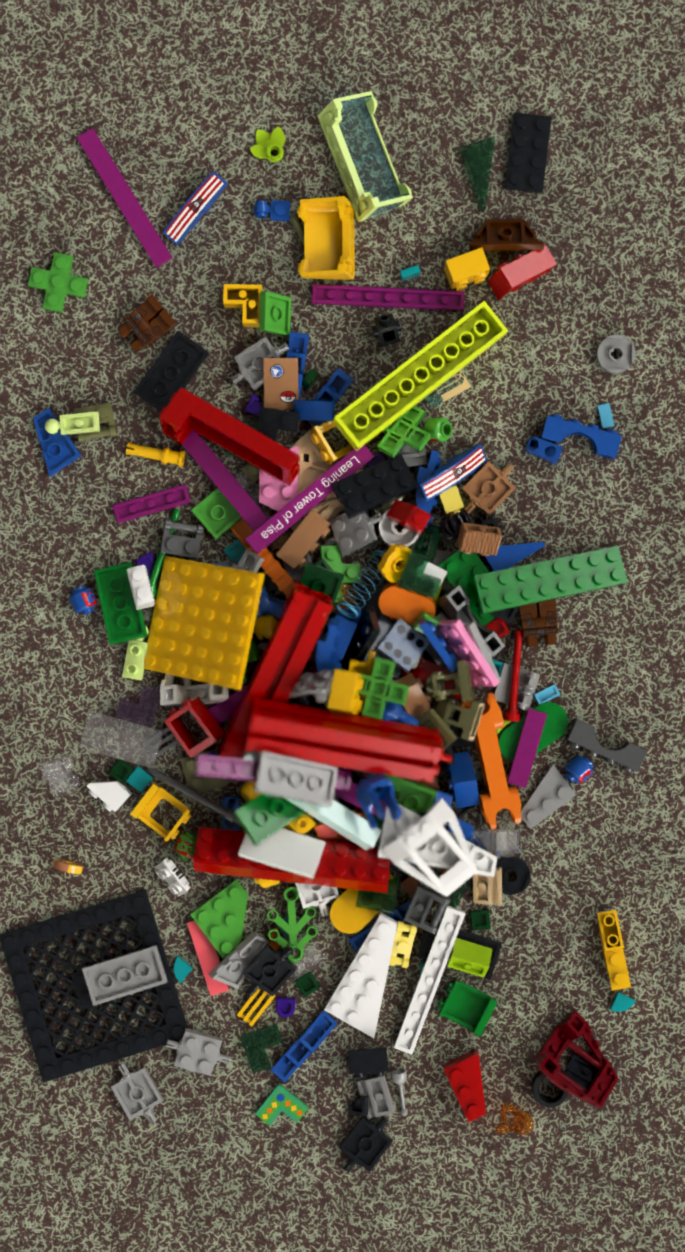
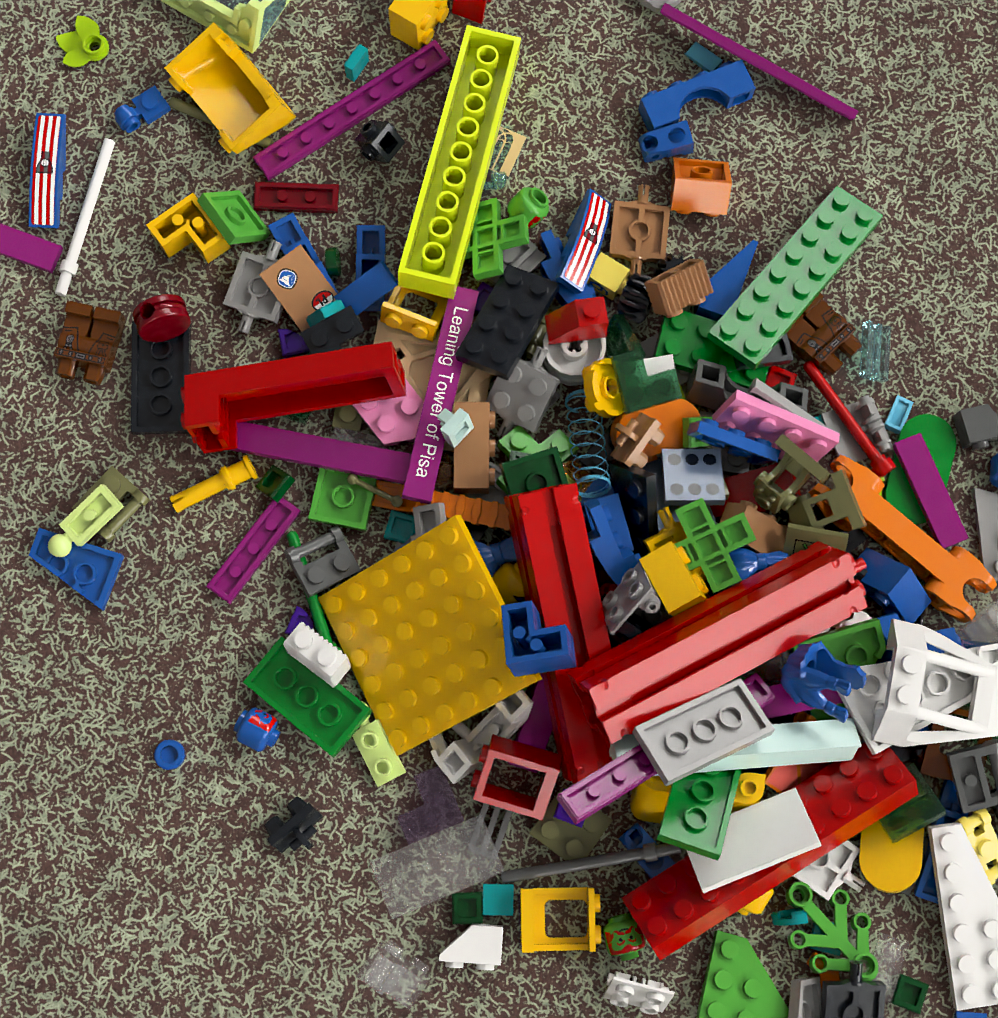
camera: 40 degrees left, 10 degrees down
(30, 578) = (169, 754): none -> blue tile
(65, 667) = (296, 829): none -> black hips
(167, 272) = (69, 265): none -> white bar
(188, 477) = (275, 483): none -> dark green tile
(193, 344) = (161, 318): none -> dark red head
(229, 507) = (396, 501): none -> olive hinge
(244, 671) = (534, 648): none -> blue brick
(276, 404) = (324, 312): none -> teal tile
(281, 903) = (786, 917): none -> teal tile
(300, 524) = (455, 426): none -> light aqua tile
(319, 325) = (296, 197): none -> dark red tile
(388, 602) = (635, 438): none -> medium nougat hips
(542, 488) = (700, 186): none -> orange slope
(563, 654) = (878, 353): none -> clear light blue tile
(631, 443) = (759, 62): none -> magenta tile

